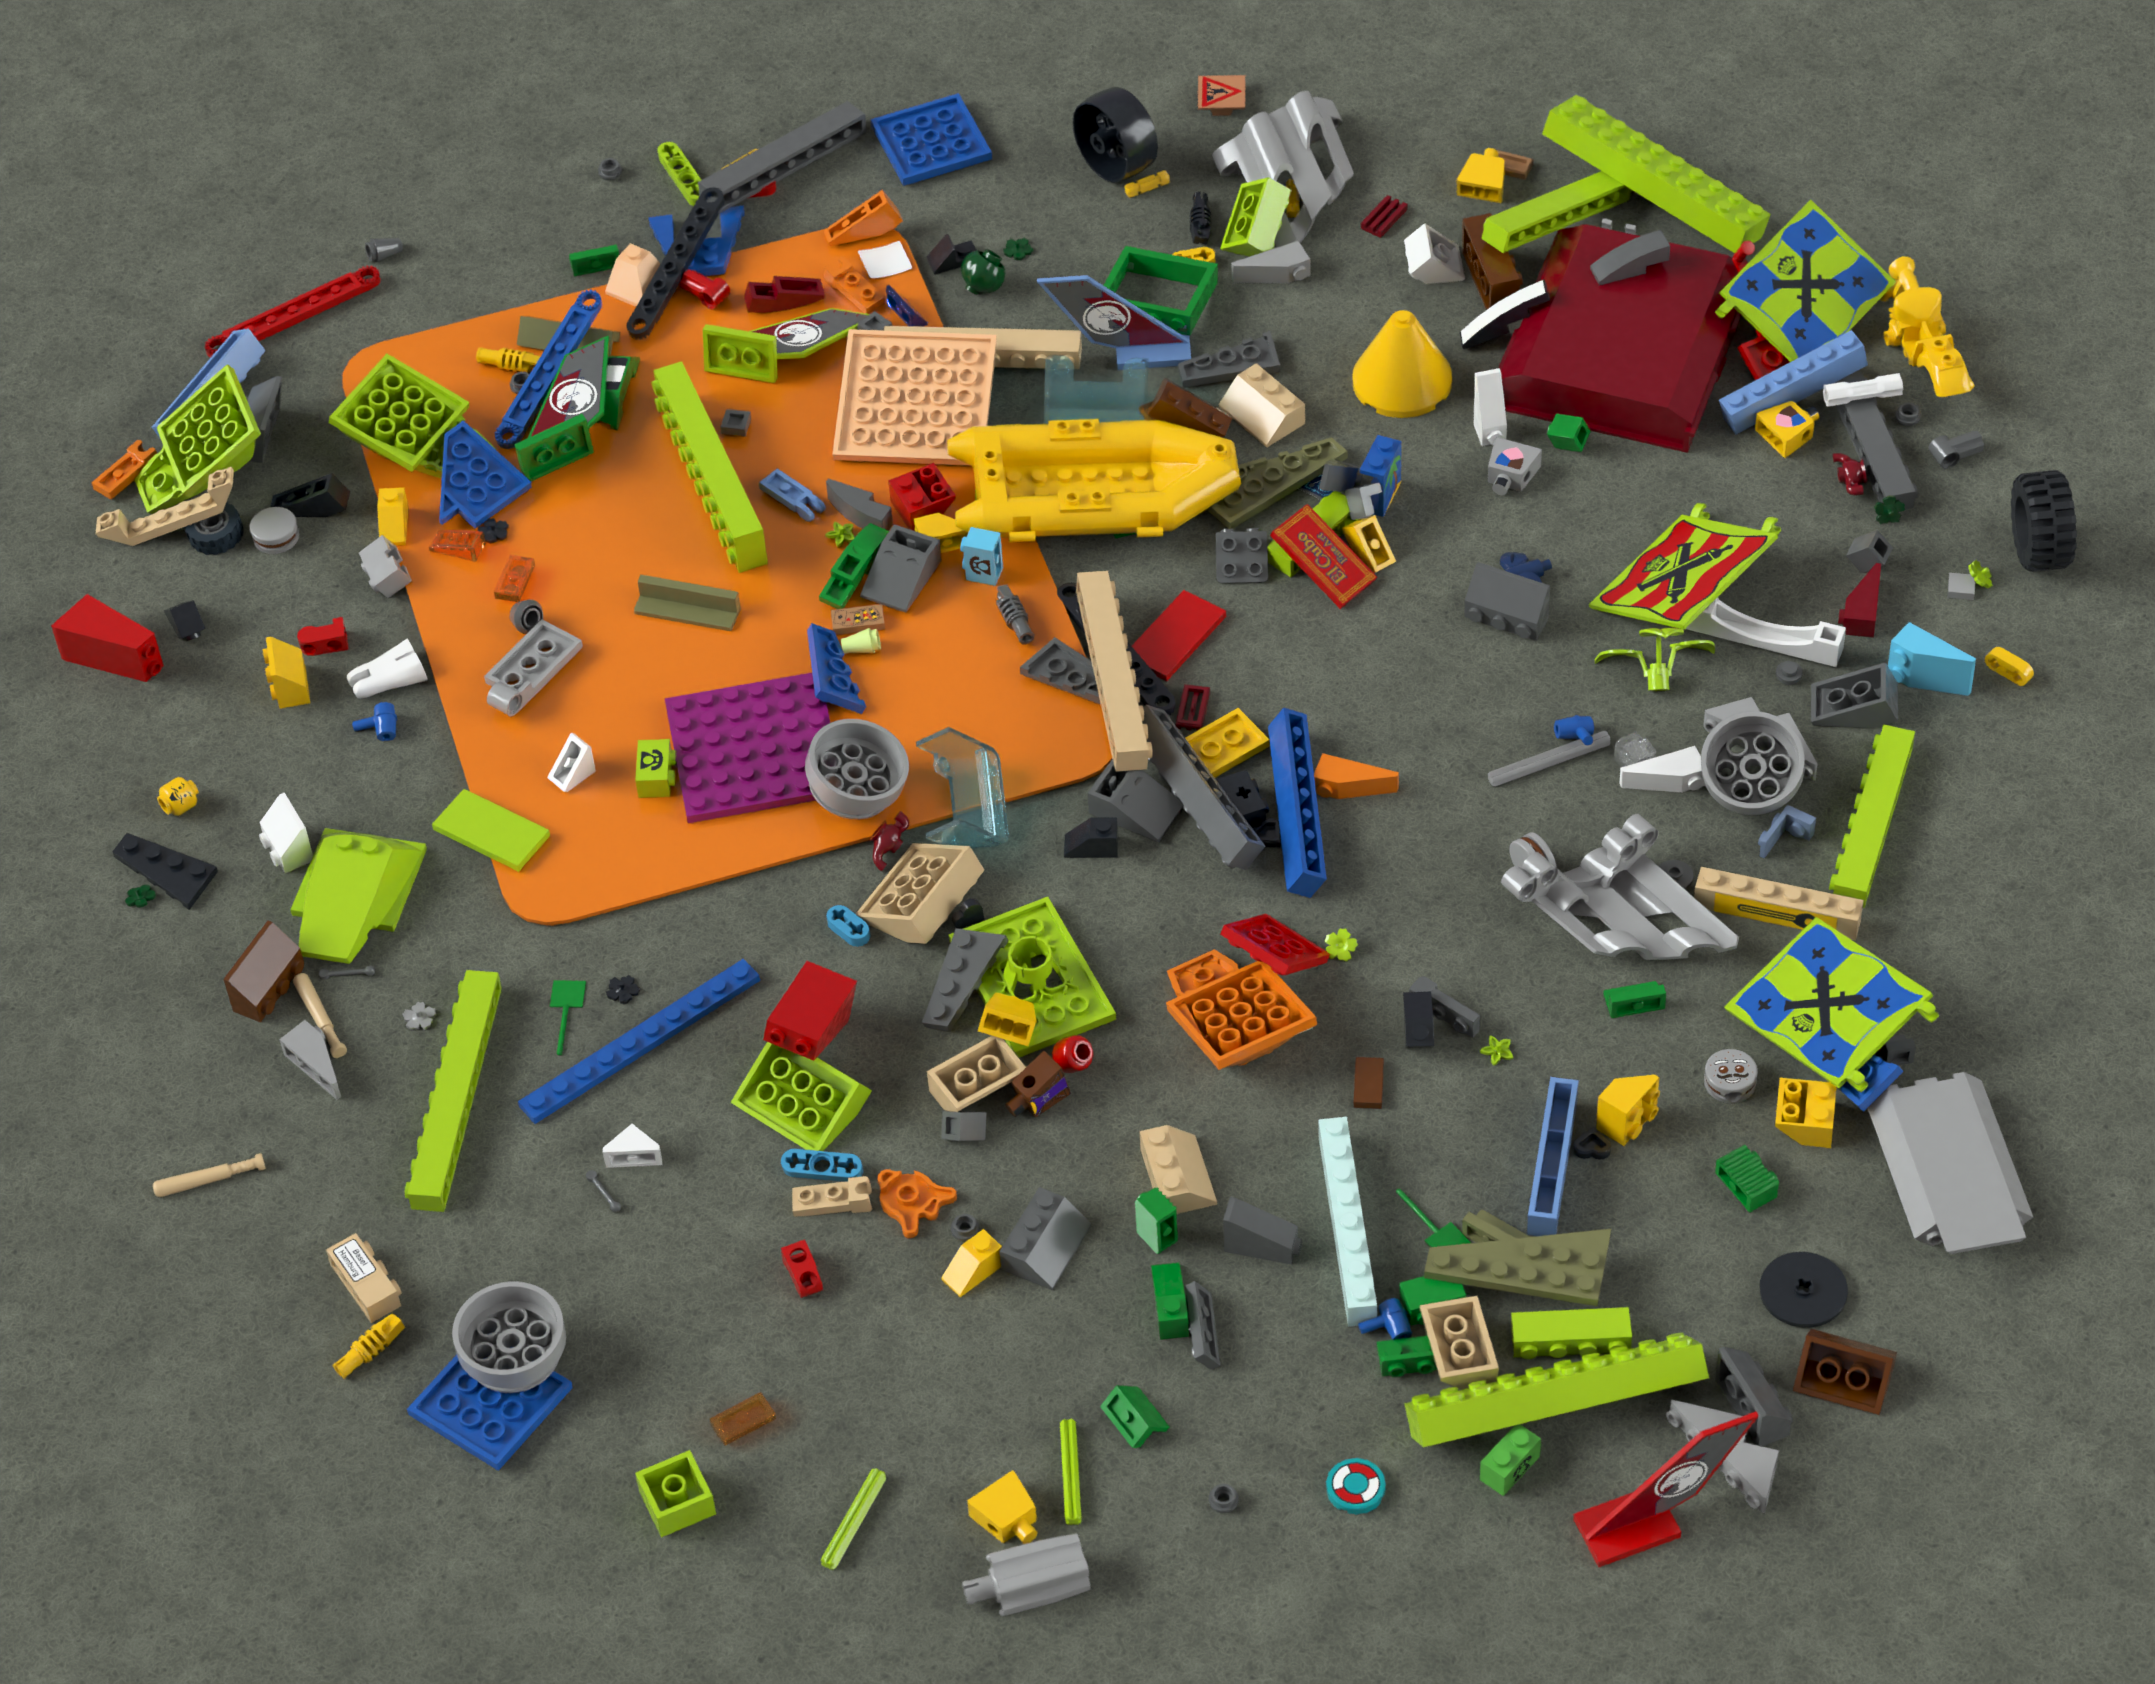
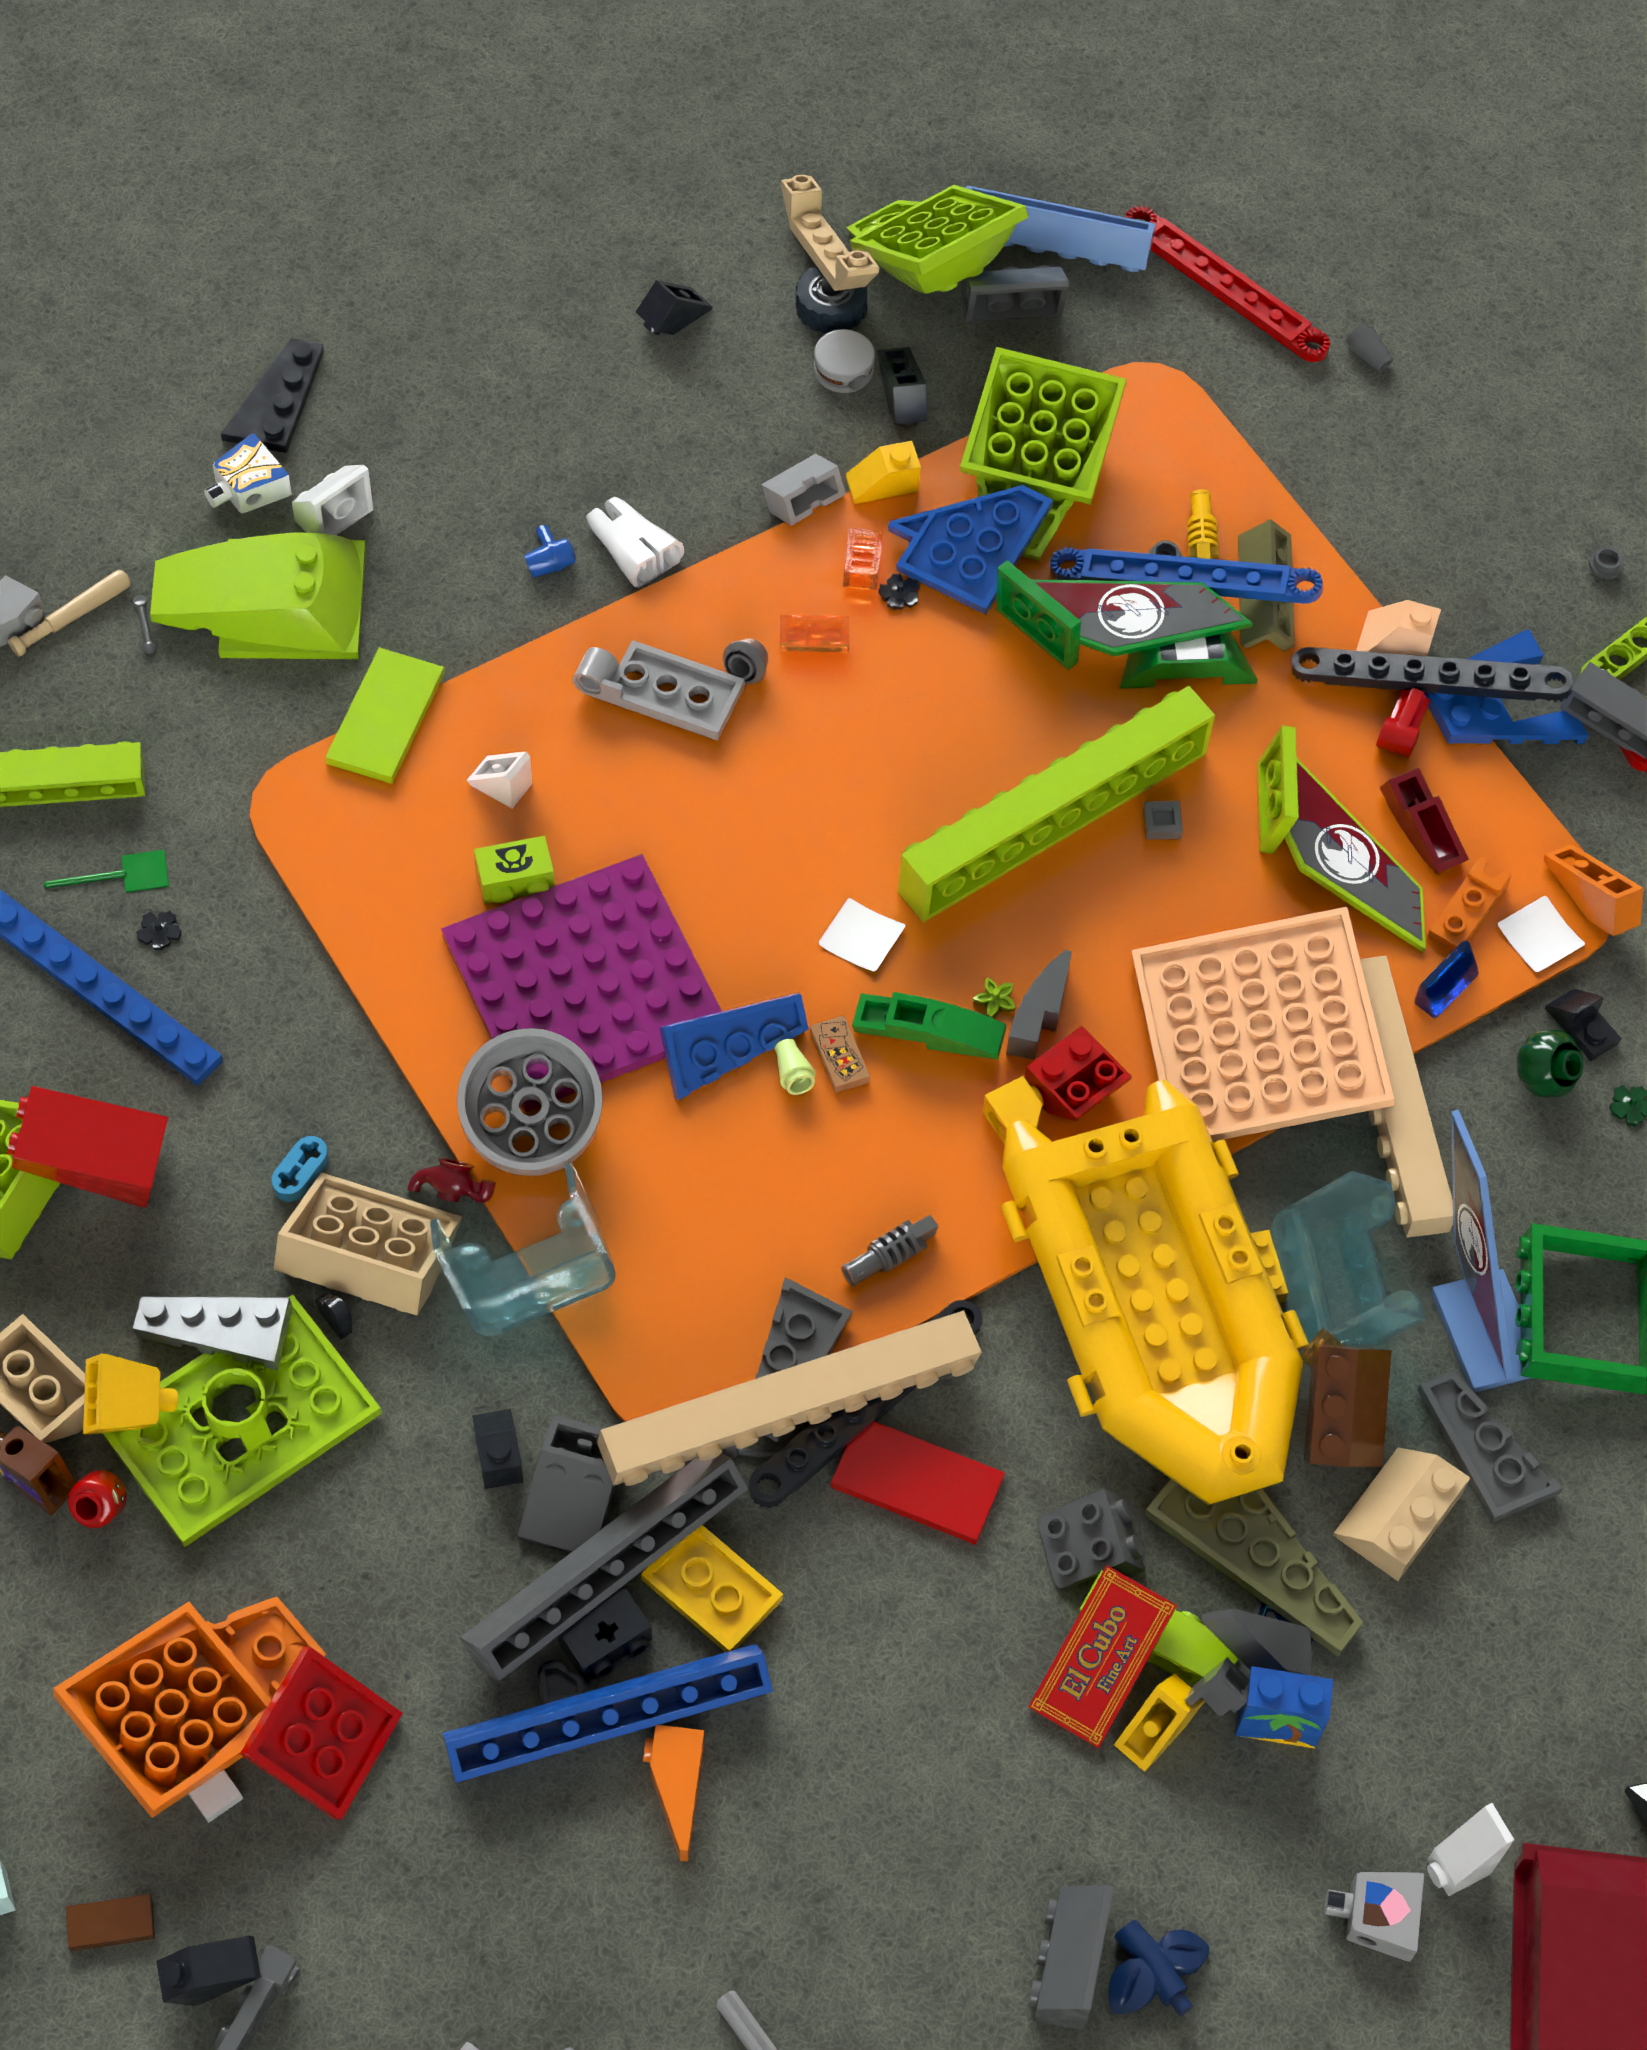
camera: 70 degrees right, 10 degrees up
(107, 641) = (609, 237): red slope -> none
(123, 471) = (899, 182): orange plate -> none
(140, 896) = (233, 385): dark green plant -> none
(177, 796) = (382, 376): yellow head -> none
(238, 889) = (248, 477): none -> torso
(263, 973) = (109, 531): slope -> none
(286, 672) = (596, 430): yellow slope -> none
(324, 638) = (673, 460): red leg -> none
(419, 1016) = (85, 718): light grey plant -> none
(593, 260) = (1429, 584): green panel -> none
(687, 603) = (814, 843): olive panel -> none
(768, 595) = (861, 935): none -> white sticker
(791, 494) = (1048, 917): medium blue hinge -> none
(874, 322) = (1398, 947): dark grey plate -> none
(901, 568) = (933, 1084): dark grey slope -> none
(982, 556) = (973, 1179): medium azure brick -> none
(1190, 723) = (784, 1547): dark red tile -> none
(1340, 945) = (357, 1831): lime plant -> none
(1402, 370) = (1531, 1708): yellow cone -> none
(1568, 432) = (1473, 1990): green brick -> none

